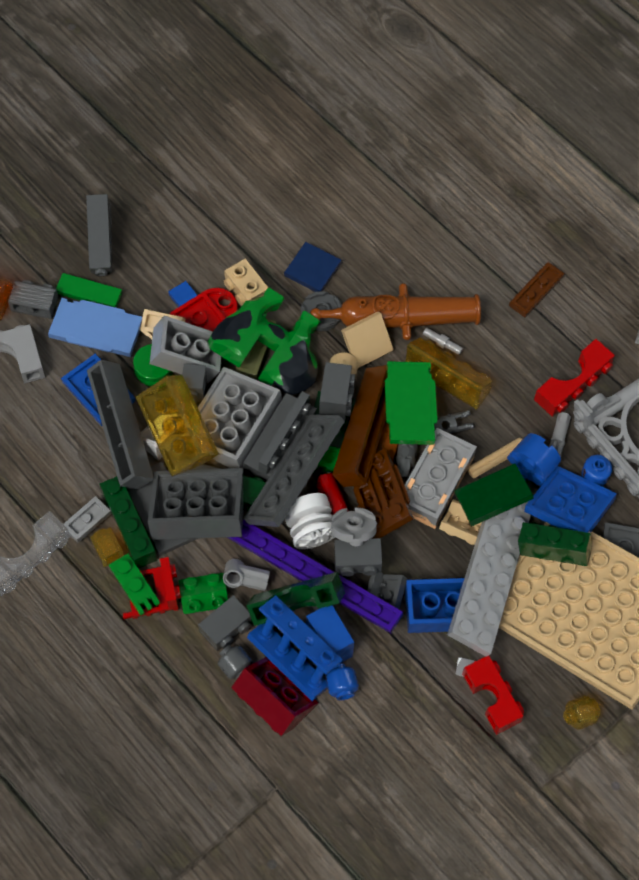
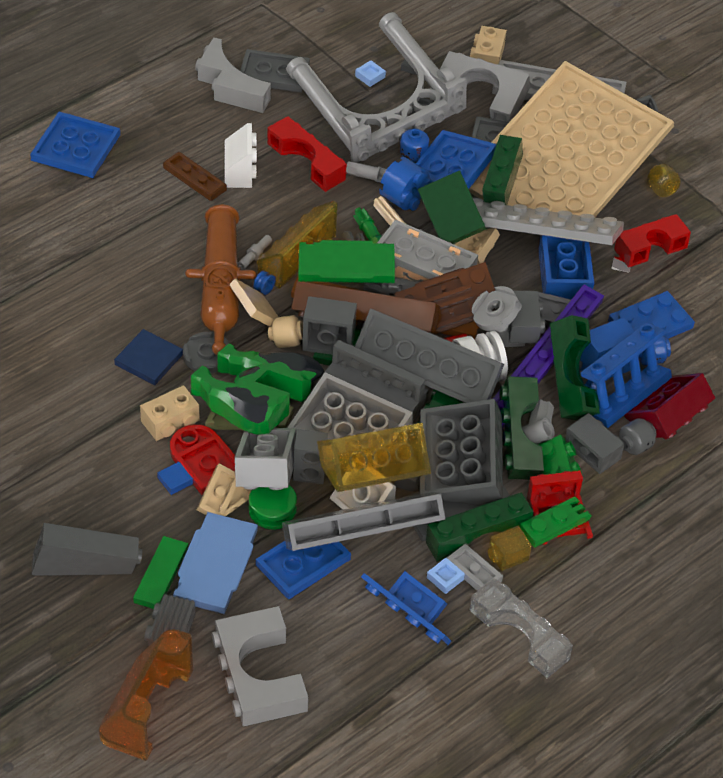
camera: 90 degrees left, 15 degrees down
(50, 469) = (415, 600): none -> blue bracket
(79, 495) = (445, 575): none -> light blue plate
(202, 558) = (522, 456): none -> dark green arch
(388, 689) = (659, 311): none -> blue plate
(400, 348) = (264, 282): none -> blue bush
(485, 433) = (367, 225): none -> green piece
(553, 320) = (239, 158): none -> white slope
(560, 192) = (75, 144): none -> blue plate

